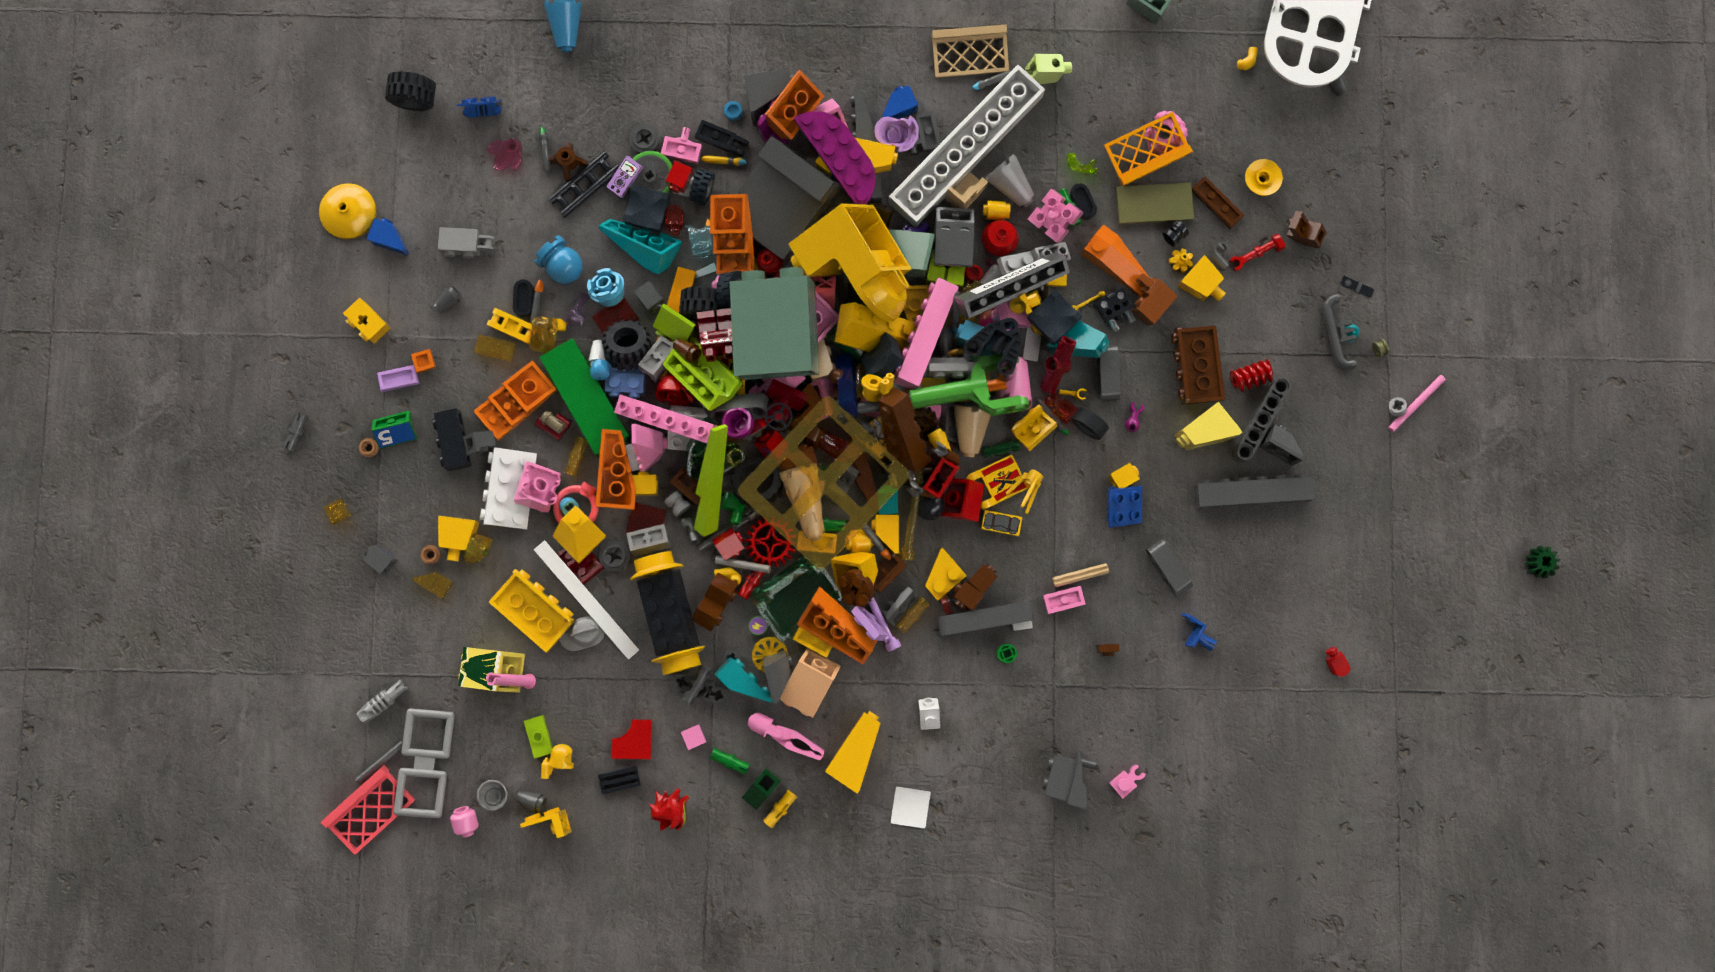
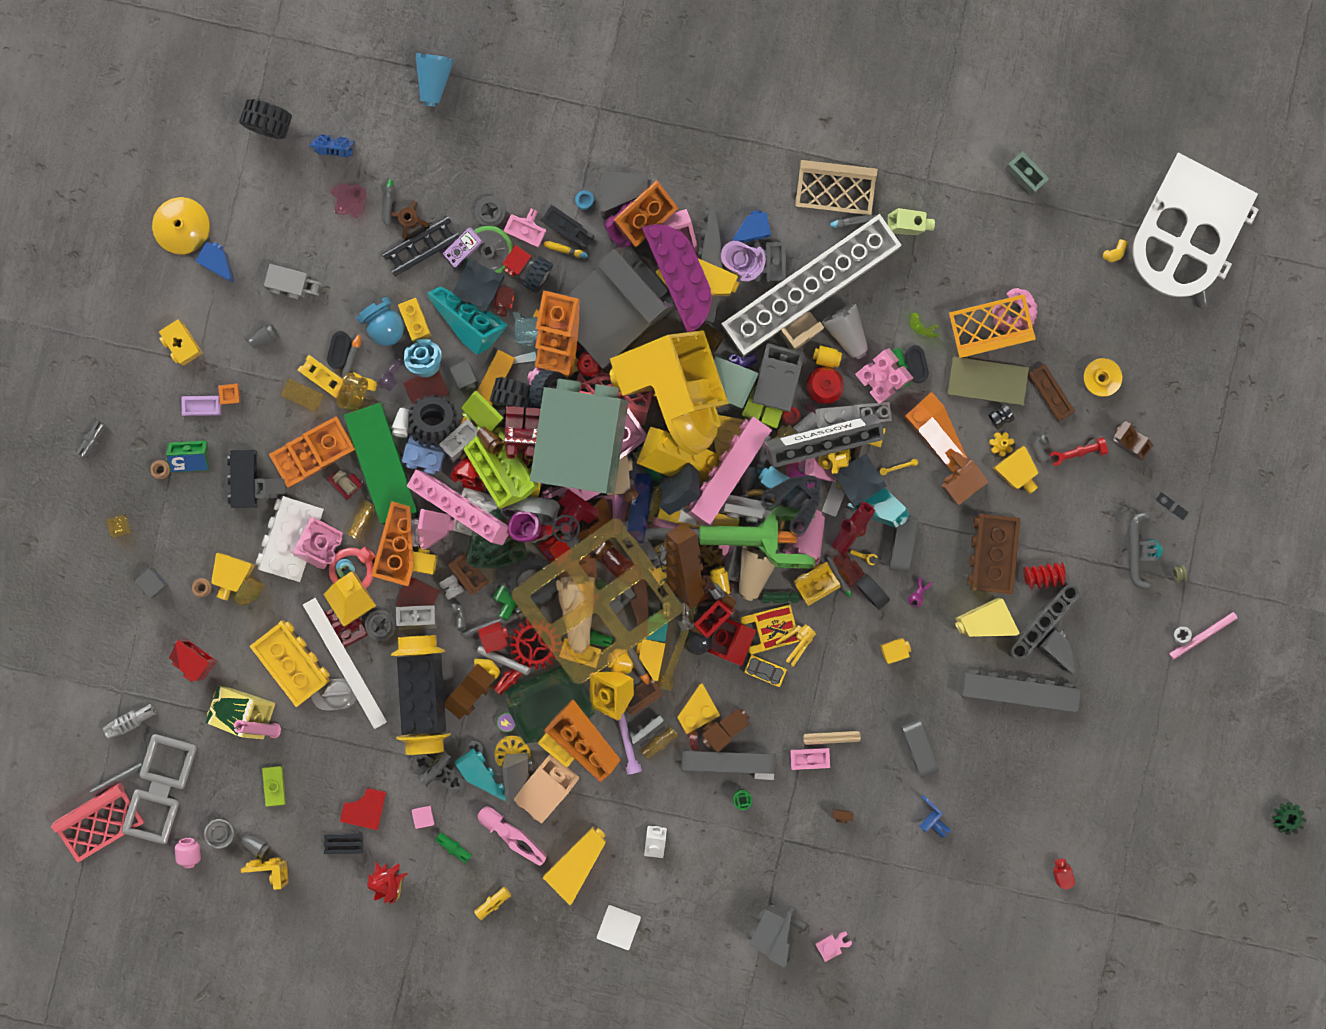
camera: 15 degrees right, 5 degrees up
(433, 627) = (191, 660): none -> red slope
(435, 583) = (201, 616): clear yellow tile -> none
(559, 759) = (290, 812): yellow piece -> none
(591, 252) = (415, 319): none -> yellow brick
(599, 369) = (401, 440): dark azure piece -> none
(710, 482) = (487, 577): lime slope -> none
(761, 788) = (479, 880): dark green slope -> none
(854, 579) = (608, 708): reddish brown plate -> none
(868, 620) = (613, 741): lavender plate -> none
(875, 387) = (667, 518): yellow piece -> none
(1115, 300) = (922, 471): black piece -> none
(1124, 506) = (889, 679): blue hinge -> none

